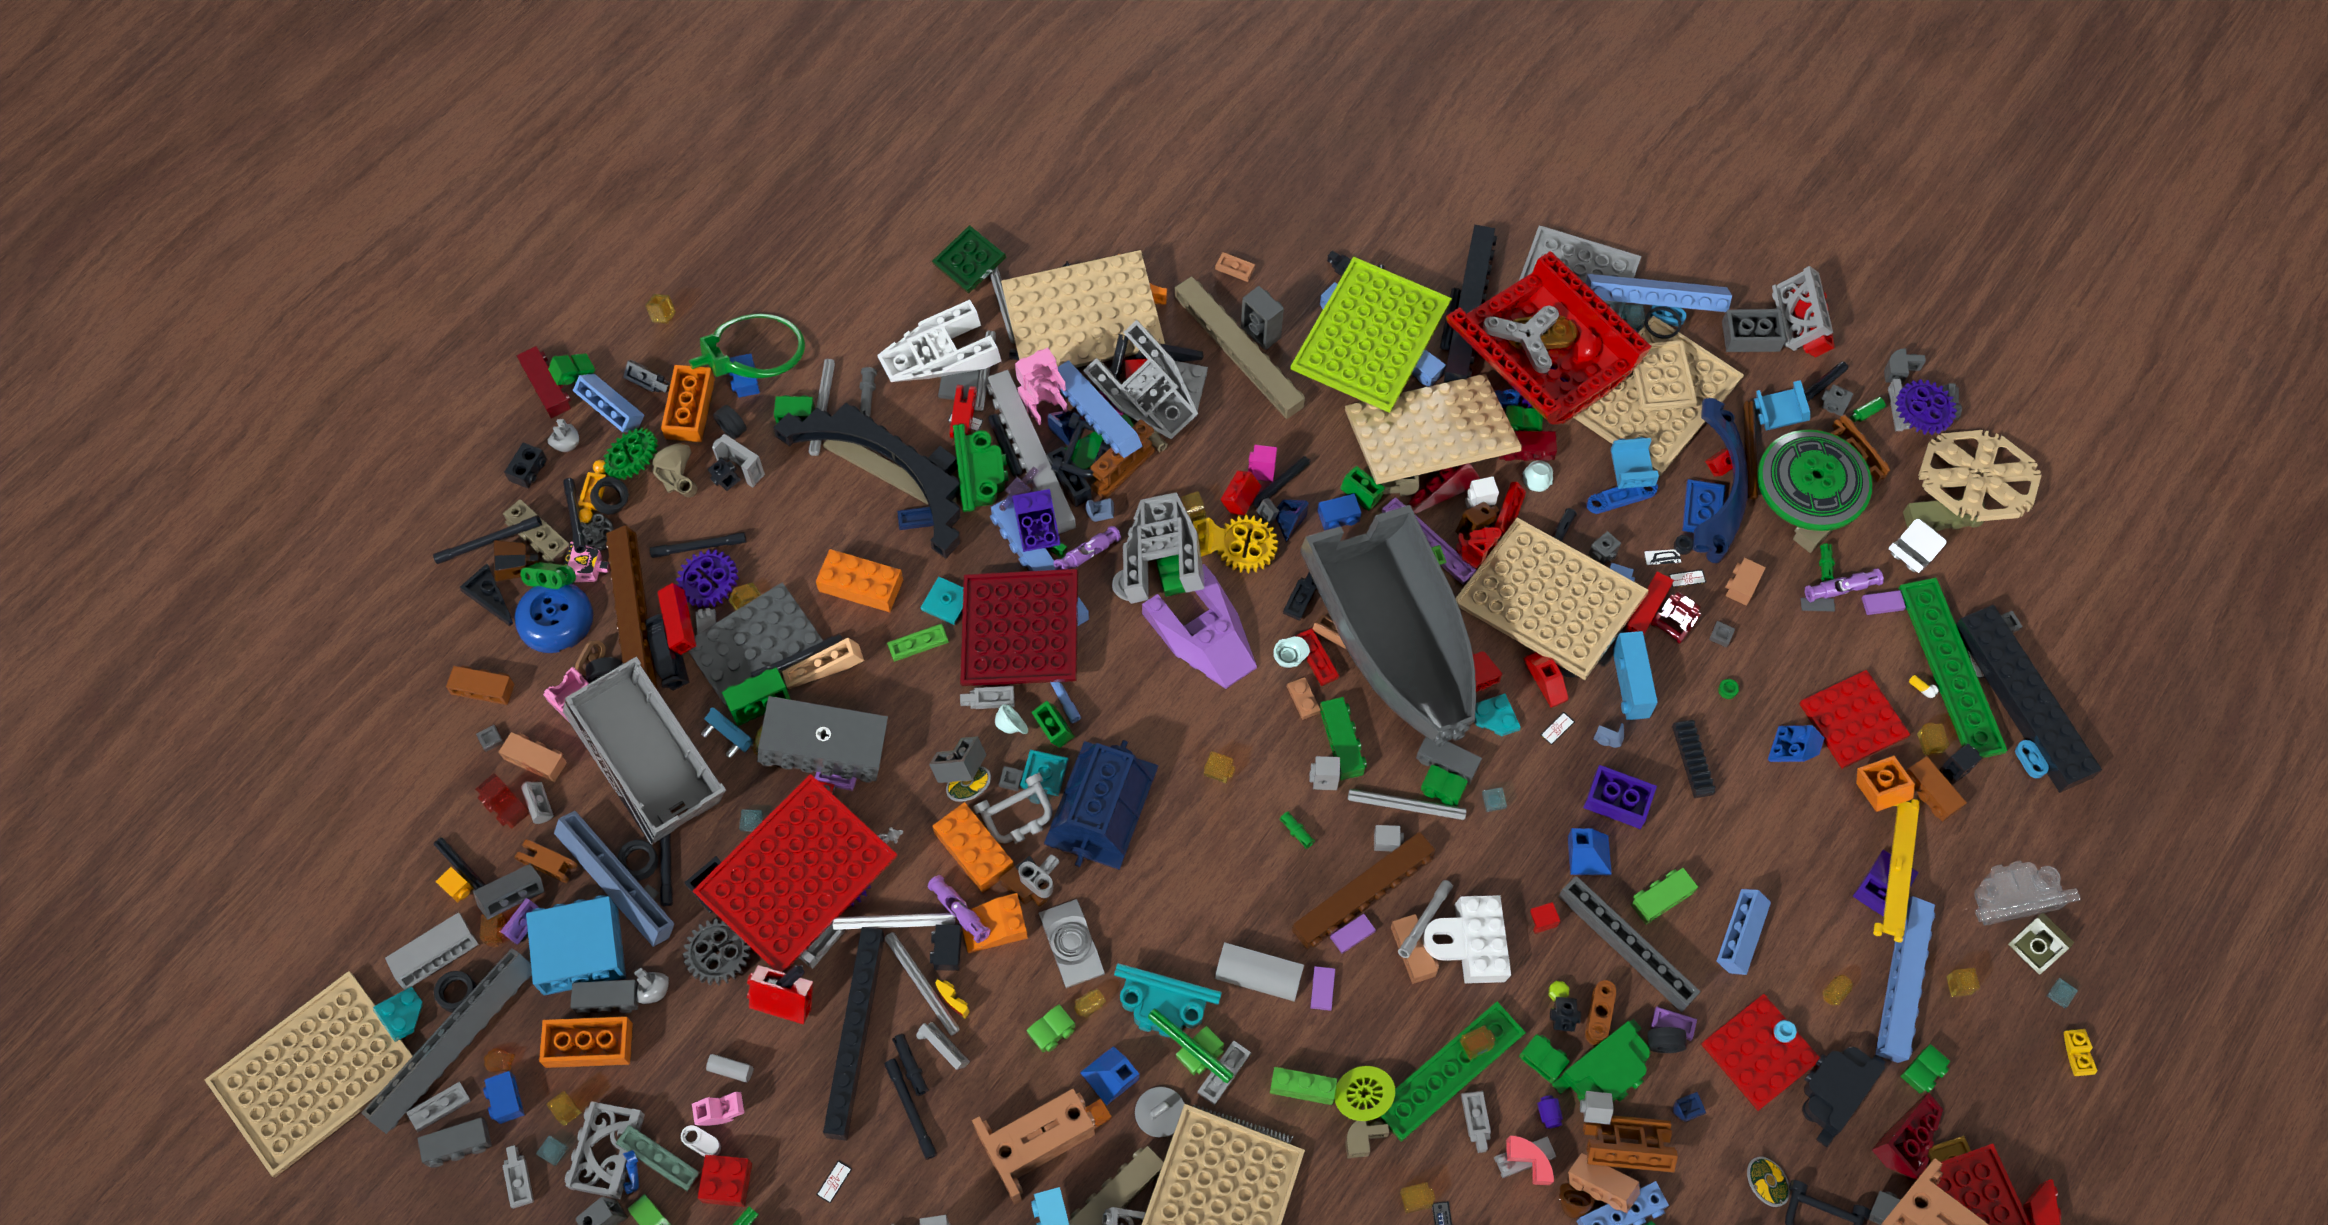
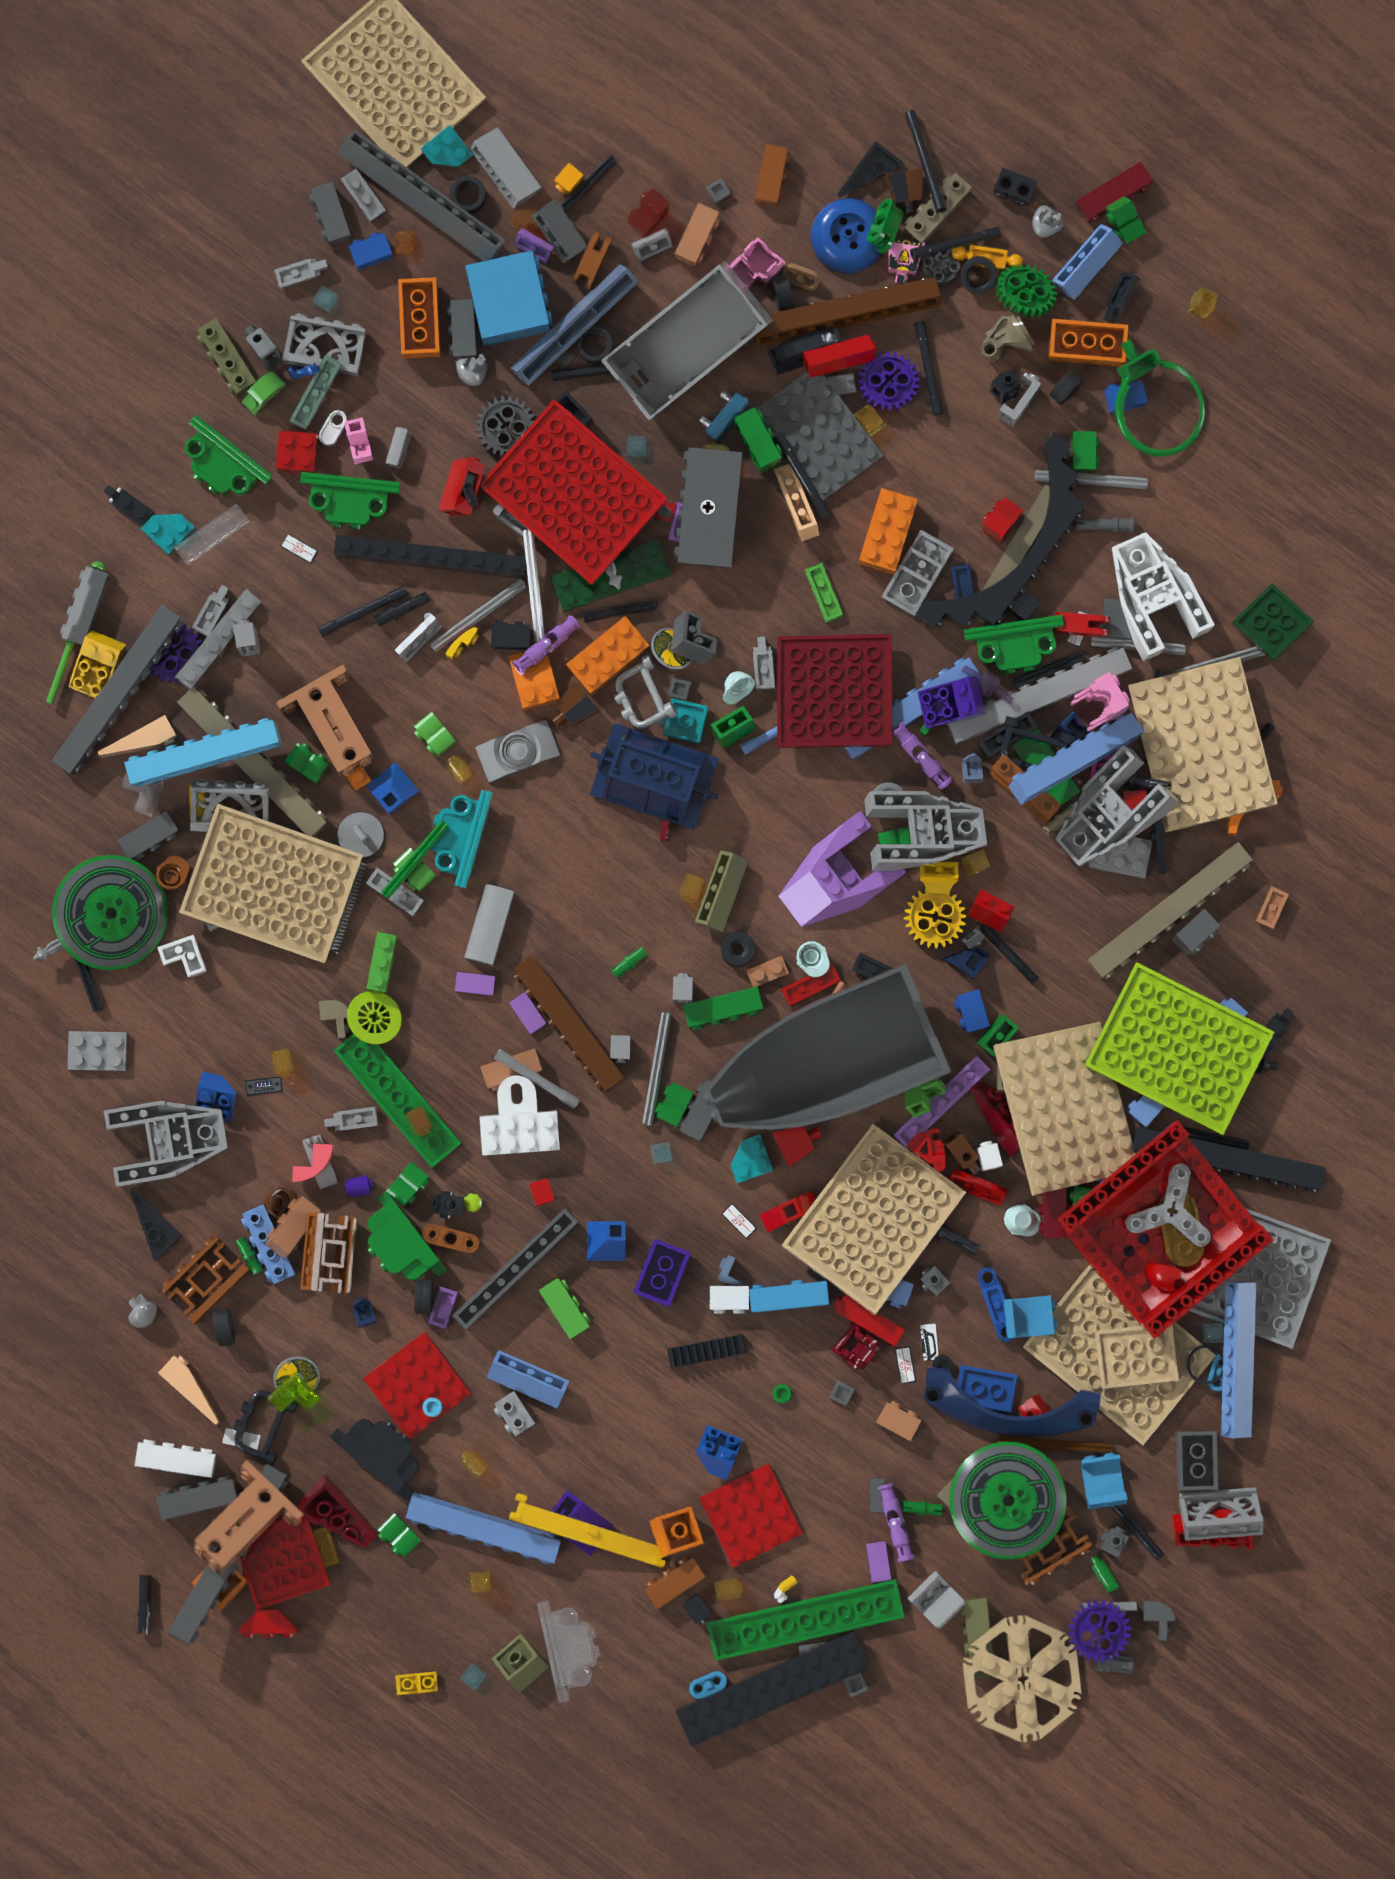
camera: 90 degrees right, 20 degrees up
(563, 1108) = (360, 305): clear yellow brick -> none
(783, 1121) = (348, 499): none -> green brick
(857, 479) = (1001, 519): none -> red brick
(898, 551) = (917, 572): none -> light grey slope
(899, 880) = (636, 566): none -> dark green plate
(926, 837) = (619, 611): none -> black piece
(944, 601) = (869, 616): teal plate -> none
(1039, 876) = (575, 718): light grey beam -> none
(1079, 1169) = (307, 763): none -> green brick
(1159, 793) = (664, 830): none -> dark red tile
(1222, 736) = (723, 888): none -> olive brick
(1263, 462) = (1024, 933): dark pink brick -> none
(1281, 713) = (727, 949): none -> black tyre
(1597, 1107) = (359, 1225): light grey brick -> none
(1638, 734) = (729, 1298): none -> white brick
(1780, 947) = (514, 1414): none -> light grey brick
(1784, 1182) = (294, 1389): none -> clear neon green brick

